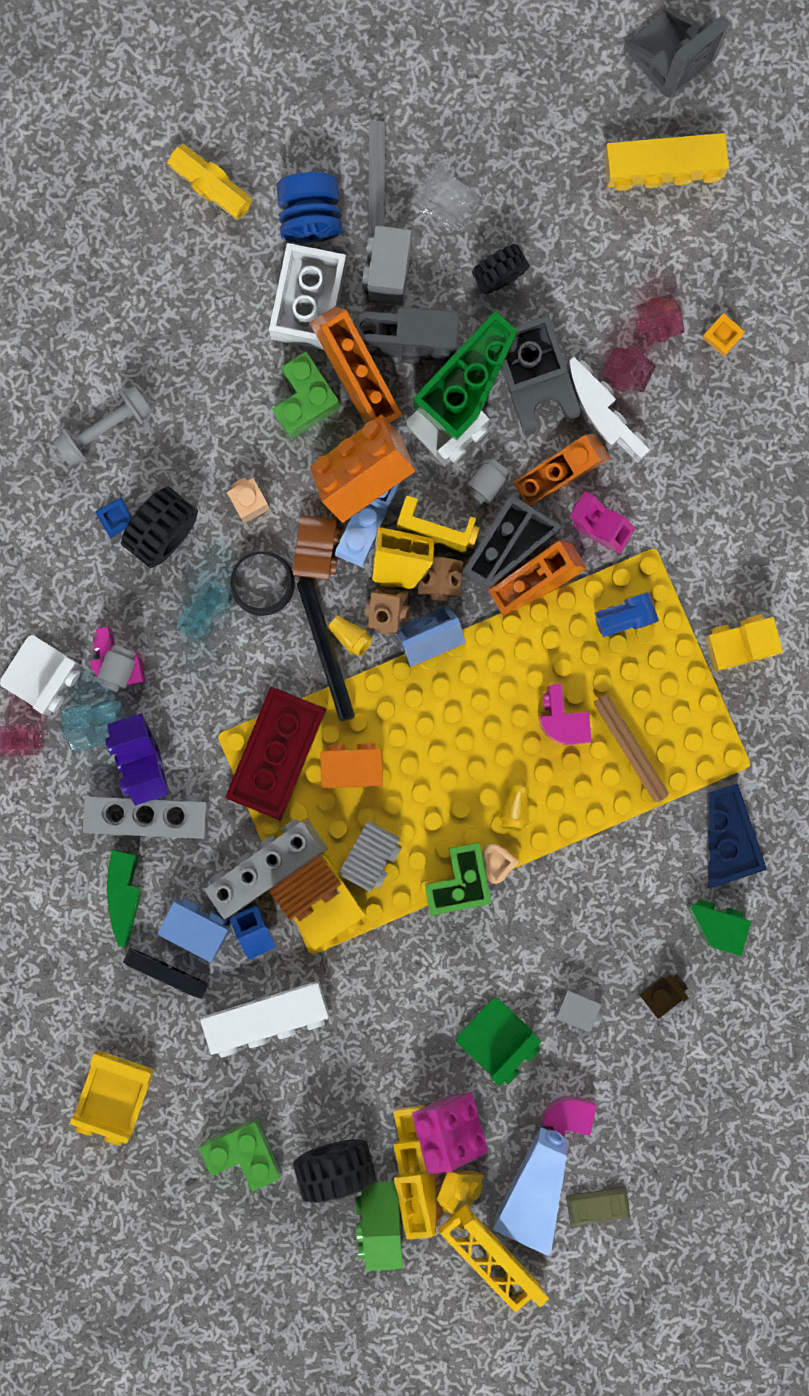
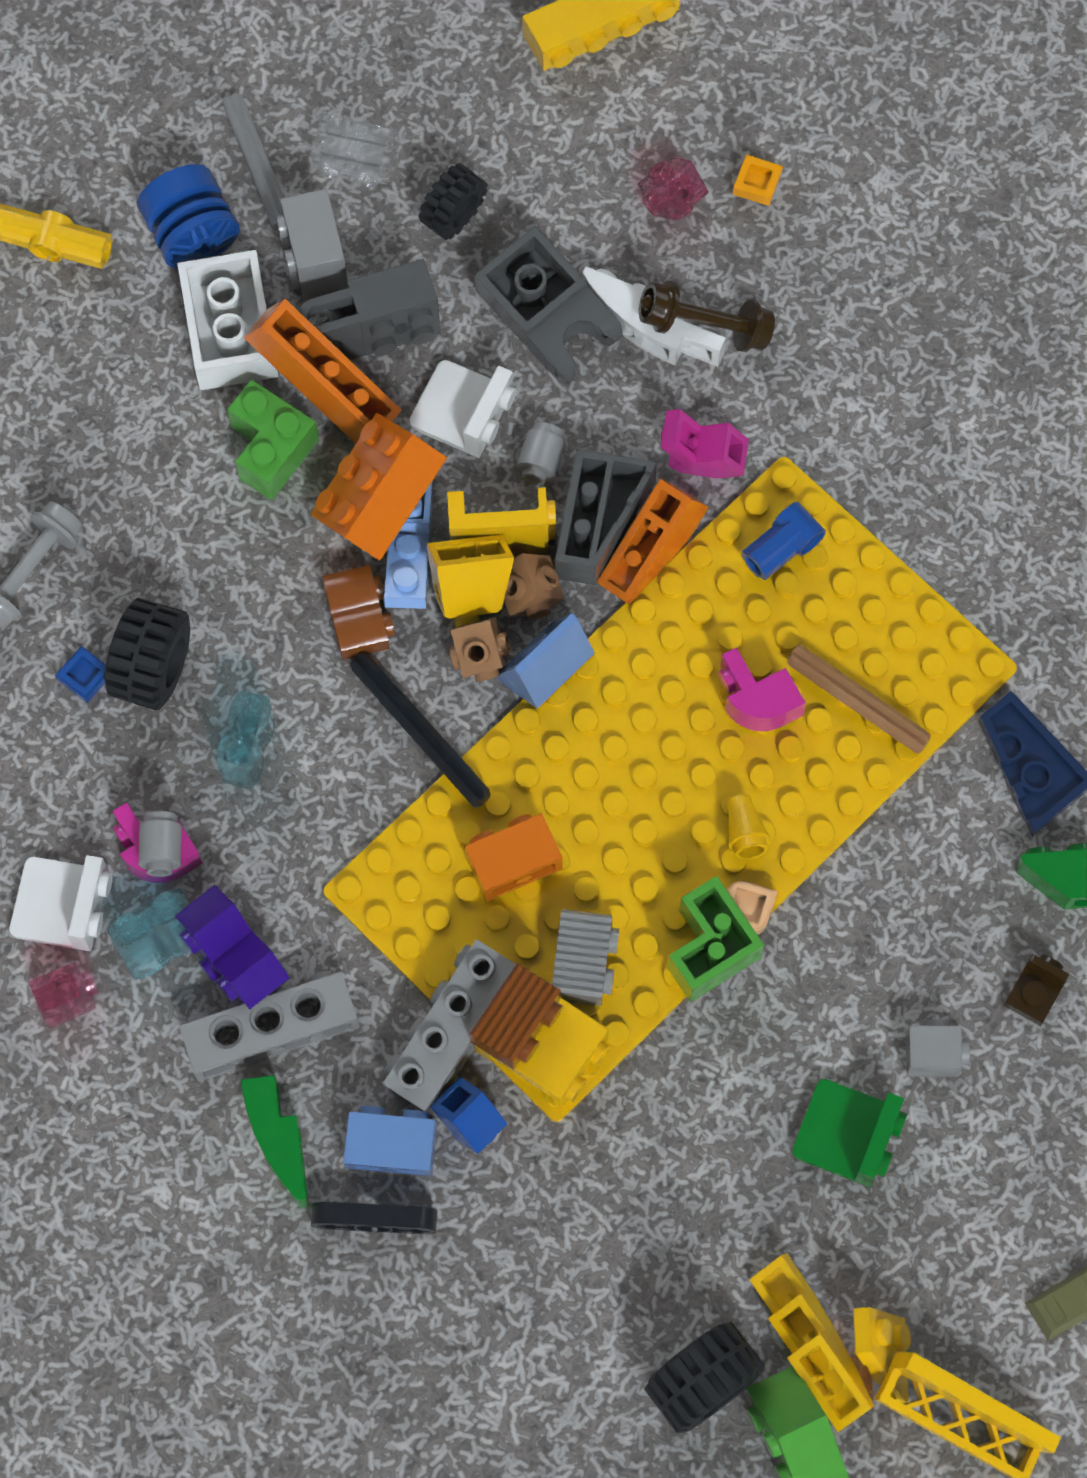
camera: 20 degrees left, 15 degrees down
(112, 1098) = (366, 1411): yellow panel -> none
(243, 1146) = (568, 1401): bright green brick -> none
(247, 499) = (247, 585): light nougat brick -> none
(264, 1018) = (530, 1220): white brick -> none
(274, 608) = (319, 714): black tyre -> none
(275, 753) = (407, 881): dark red tile -> none
(352, 637) = (446, 701): yellow cone -> none
(450, 1133) = (835, 1267): dark pink brick -> none
(463, 384) = (463, 343): green wedge -> none
(533, 1197) = (982, 1311): light blue slope -> none
(562, 469) = (629, 401): orange slope -> none
(570, 1114) = (982, 1189): dark pink brick -> none
(613, 411) = (662, 304): none -> dark brown piece
(628, 369) = (659, 257): clear pink brick -> none
(750, 642) = (948, 520): yellow brick -> none

